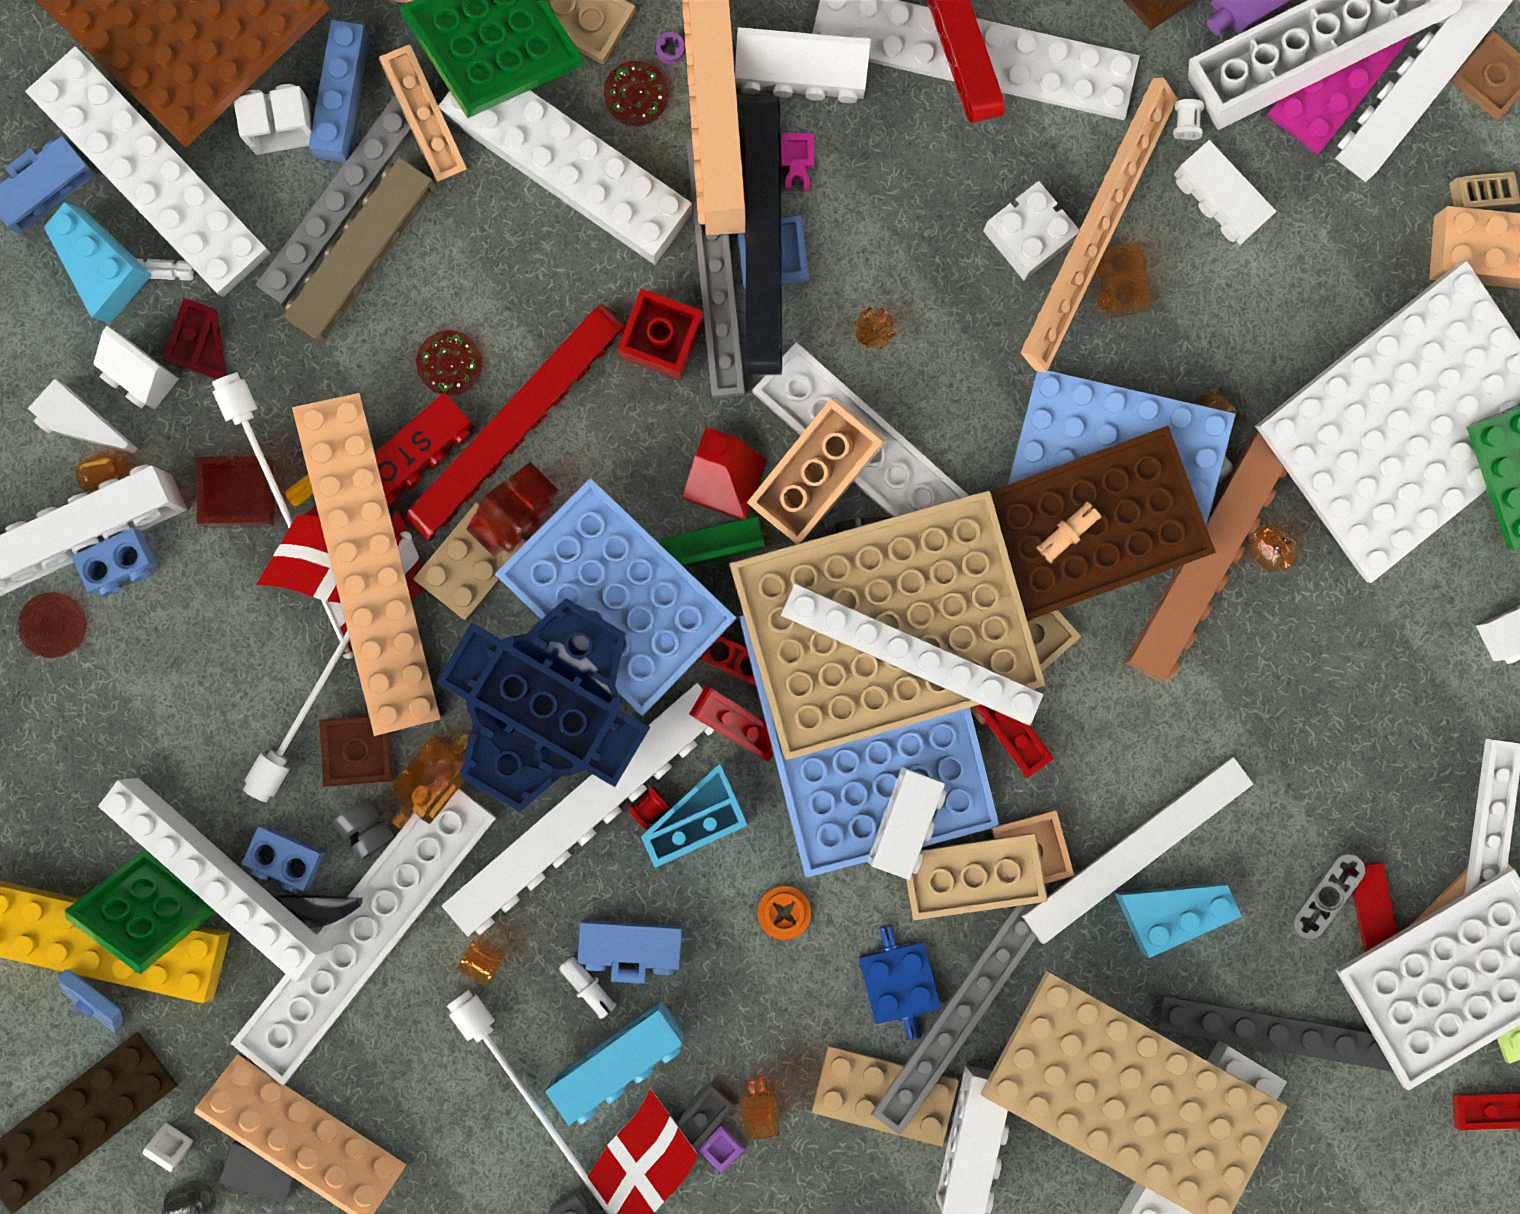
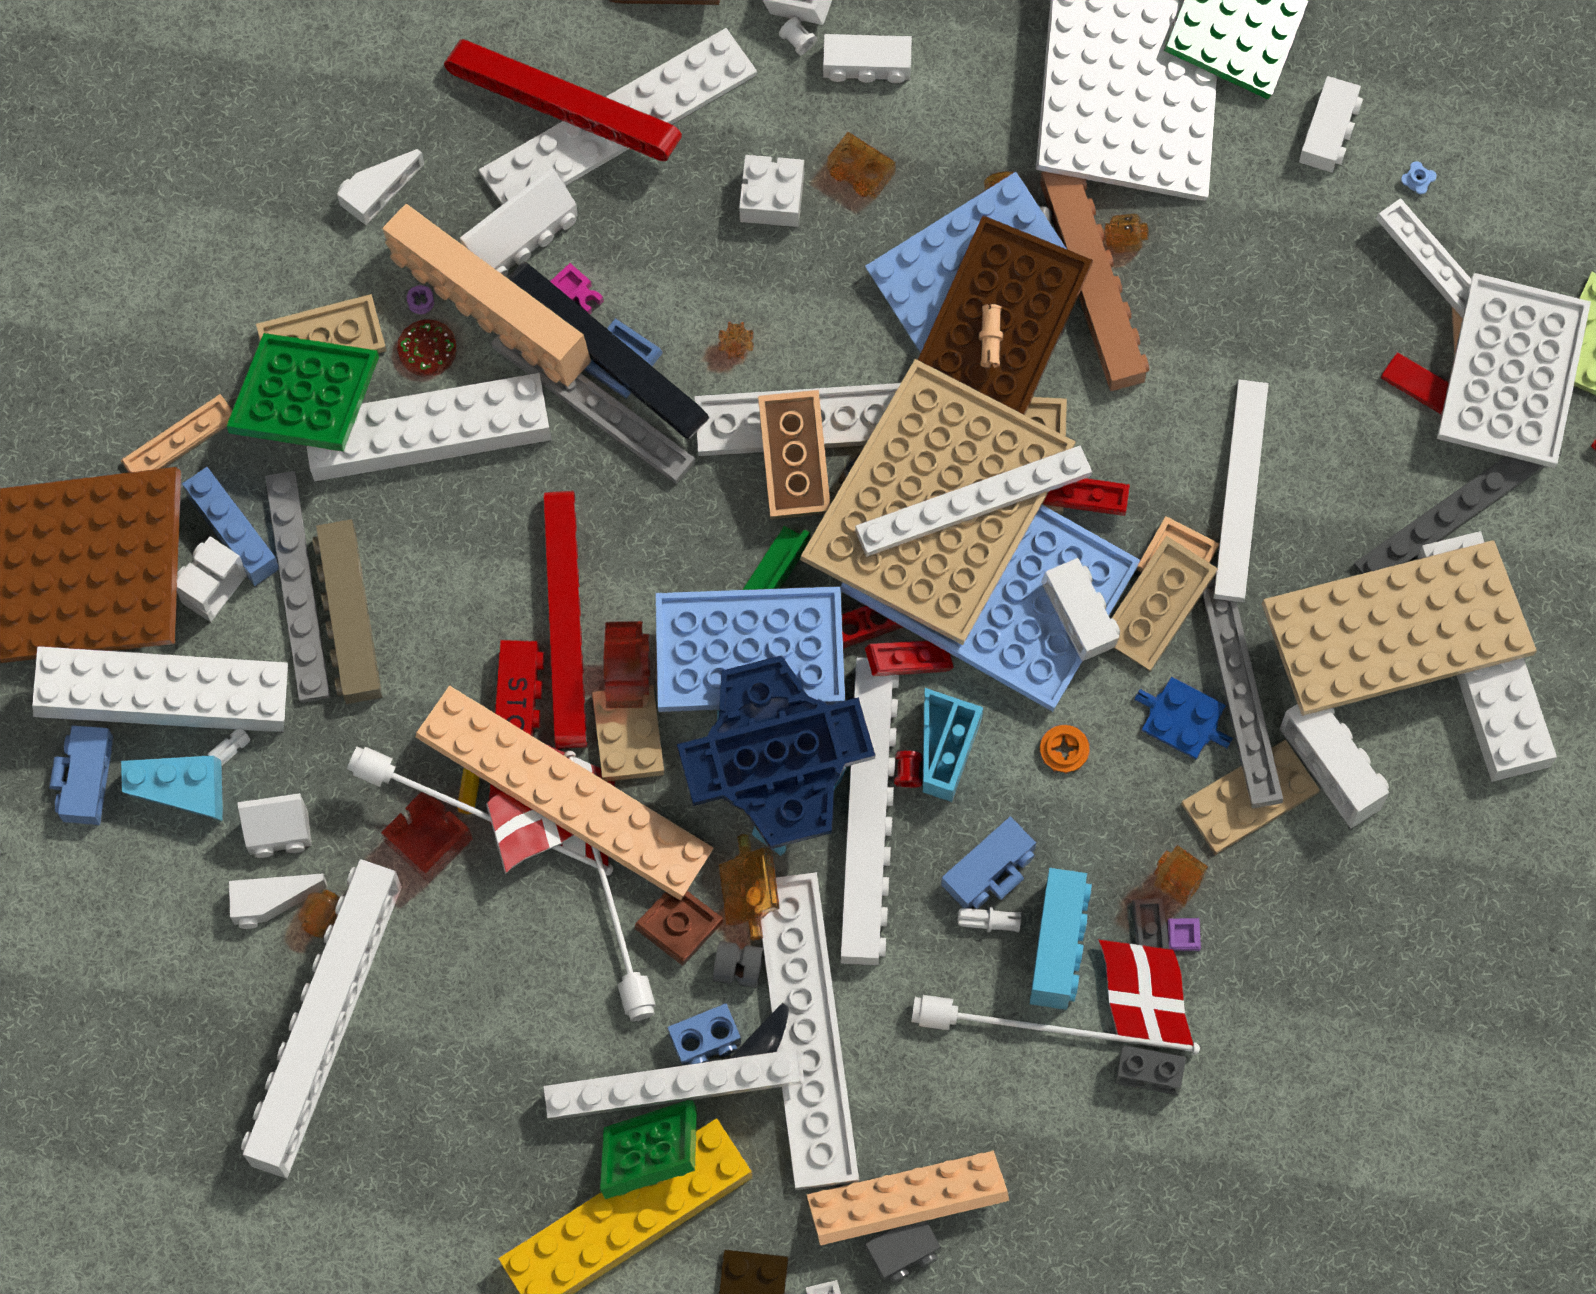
camera: 40 degrees left, 15 degrees down
(61, 632) = (387, 1057): clear red tile -> none
(90, 1001) = (674, 1249): medium blue plate -> none
(114, 555) = (383, 960): medium blue brick -> none
(196, 341) = (297, 771): dark red wing -> none
(422, 113) = (302, 485): light nougat plate -> none
(449, 363) = (480, 626): clear red tile -> none
(481, 960) = (903, 968): clear orange brick -> none
(660, 334) = (603, 472): red brick -> none
(724, 474) = (734, 519): red slope -> none
(1099, 225) = (812, 145): light nougat plate -> none
(1176, 914) = (1304, 505): medium azure wedge -> none
(1350, 880) = (1373, 383): light grey beam -> none

